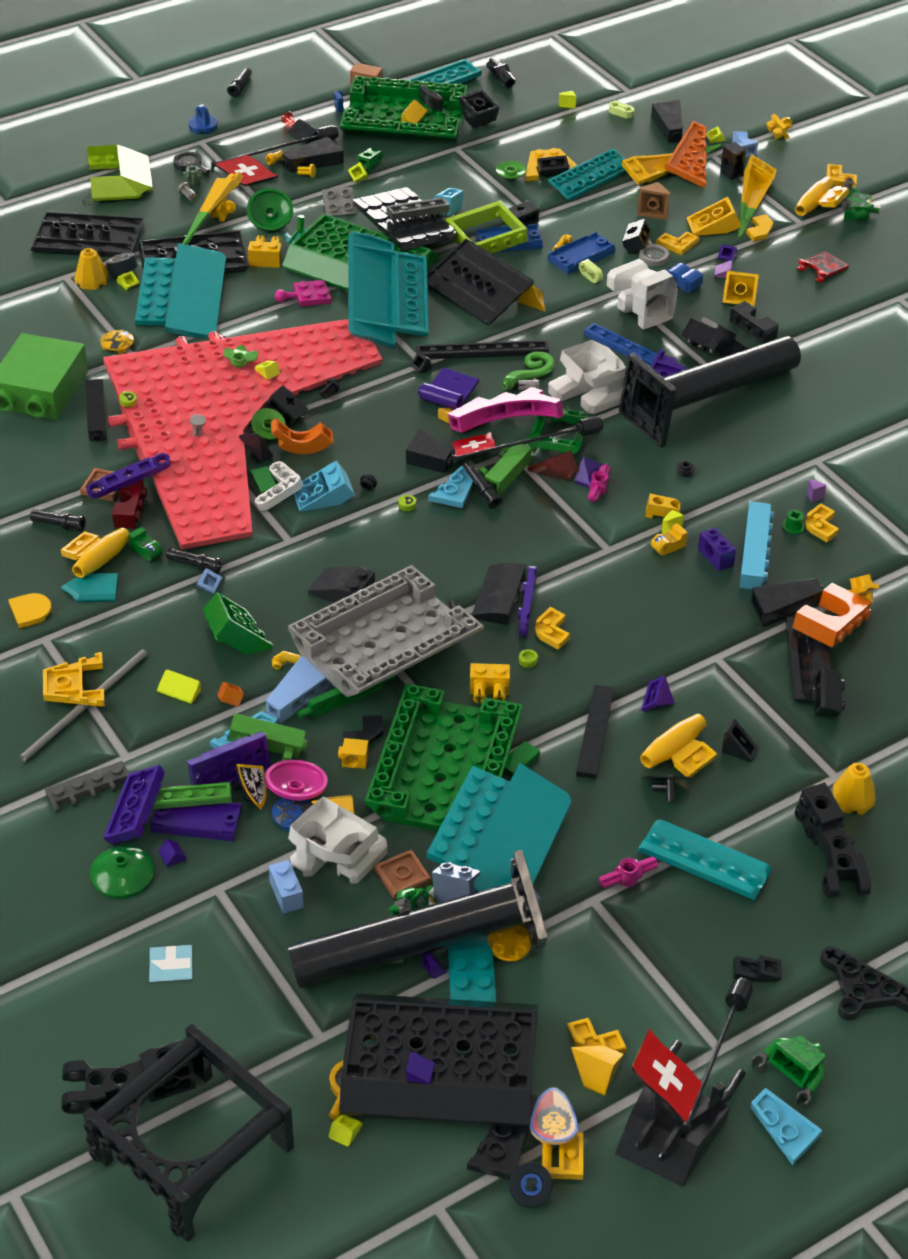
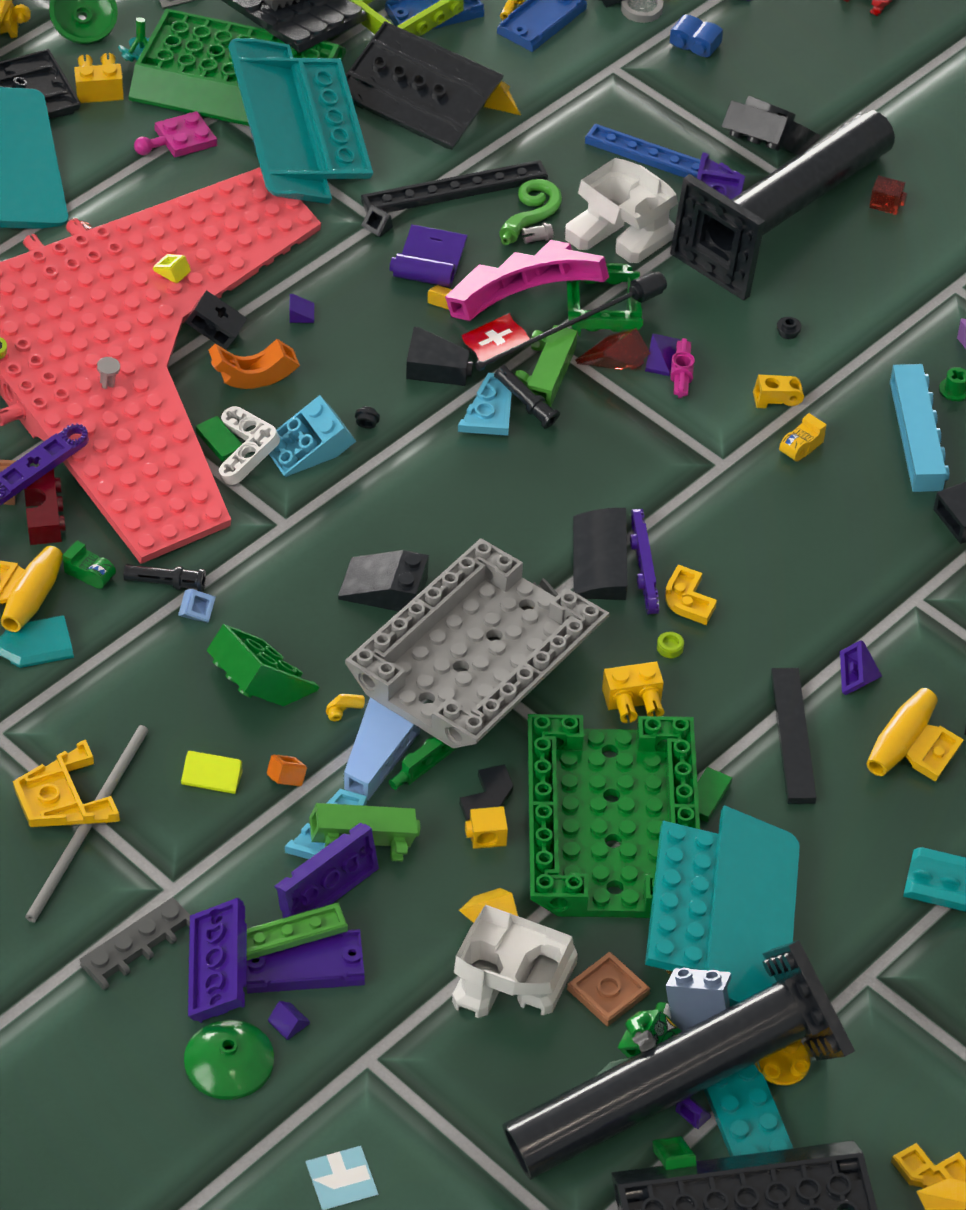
camera: 15 degrees left, 5 degrees up
(240, 356) = (127, 254): bright green plate -> none
(253, 784) = (366, 899): shield -> none
(256, 445) = (192, 386): black slope -> none
(262, 418) = (197, 341): bright green dish -> none
(286, 886) = (463, 1038): light blue brick -> none
(288, 811) = (431, 928): dish -> none
(296, 780) = (426, 882): dark pink dish -> none
(332, 386) = (265, 277): black piece -> none
(348, 409) = (301, 310): none -> dark purple slope
(406, 989) = (674, 1153): none -> green tile
(407, 502) = (430, 439): lime tile -> none
(591, 271) = (565, 44): yellowish green beam -> none
(628, 872) = (901, 939): dark pink axle -> none
(649, 292) = (657, 67): white piece -> none
(668, 786) = (915, 798): black shield -> none
(671, 519) = (797, 411): neon yellow slope -> none
(717, 549) = (870, 441): dark purple brick -> none
(721, 270) = (744, 16): medium lavender slope -> none
(740, 288) = (778, 43): yellow slope -> none
(761, 329) = (823, 100): black arch -> none
(786, 394) = (888, 195): none -> clear red brick

